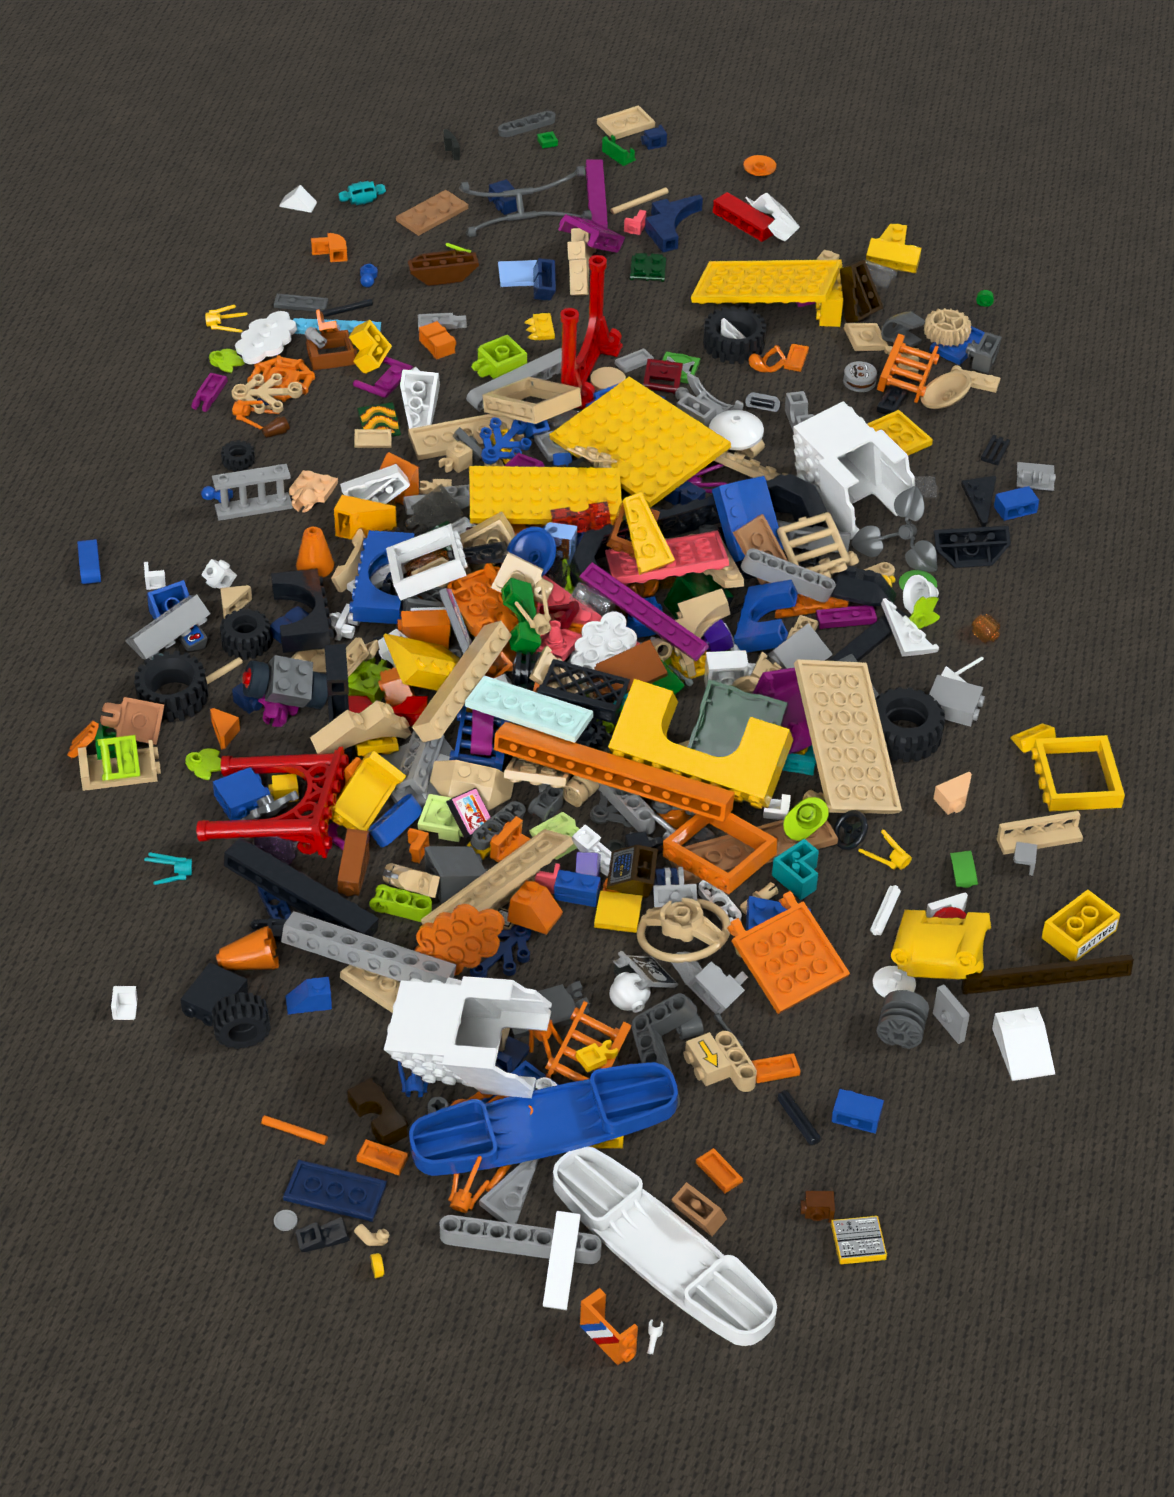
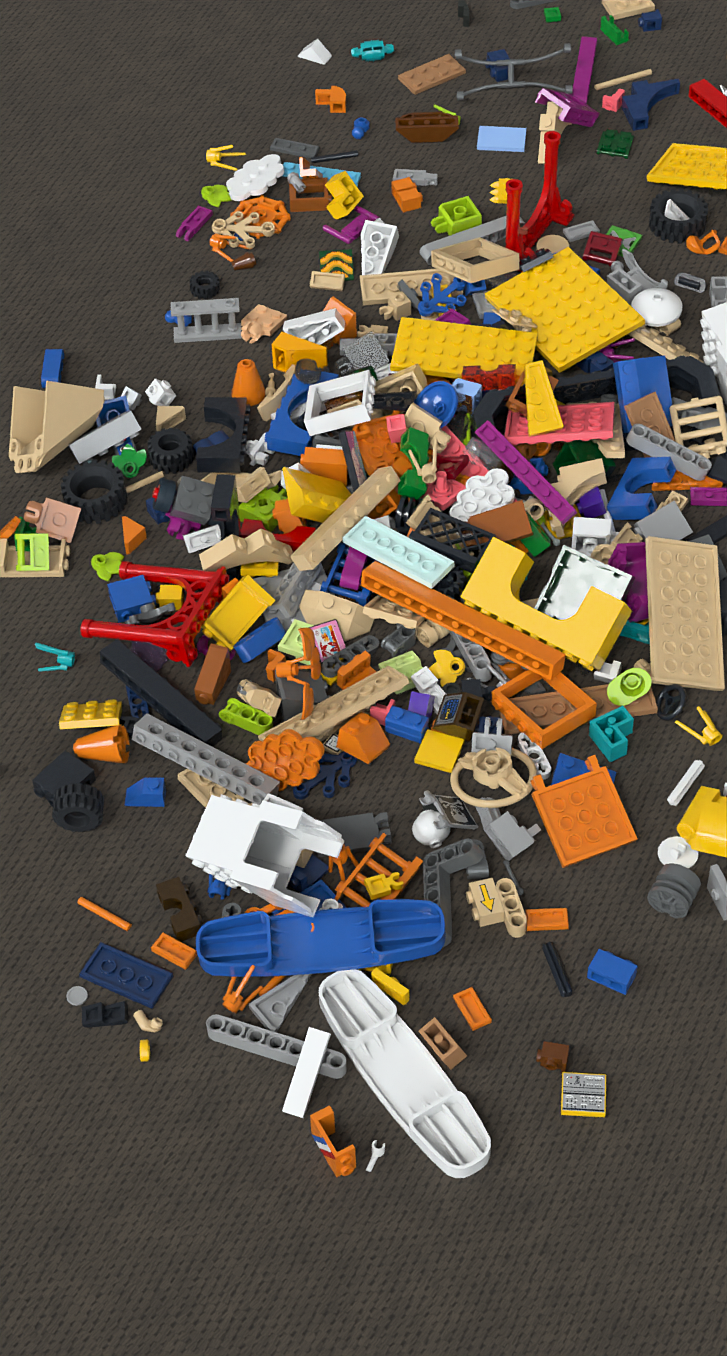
camera: 15 degrees right, 5 degrees up
(105, 618) = (49, 421): none -> tan windscreen
(190, 581) = (132, 397): none -> tile
(203, 647) = (128, 459): none -> green plate
(229, 921) = (90, 714): none -> yellow plate
(305, 722) = (202, 538): none -> white plate
(339, 559) = (270, 390): none -> tan piece
(381, 533) = (307, 371): none -> clear smoke hair
(443, 843) = (290, 669): none -> orange plant
(494, 580) = (396, 427): none -> coral panel
(544, 279) = (515, 146): dark blue piece -> none
(601, 823) = (443, 667): none -> yellow plate
(602, 389) = (529, 262): none -> plate
(629, 1159) = (390, 986): none -> yellow plate
(764, 893) = (576, 752): tan axle -> none

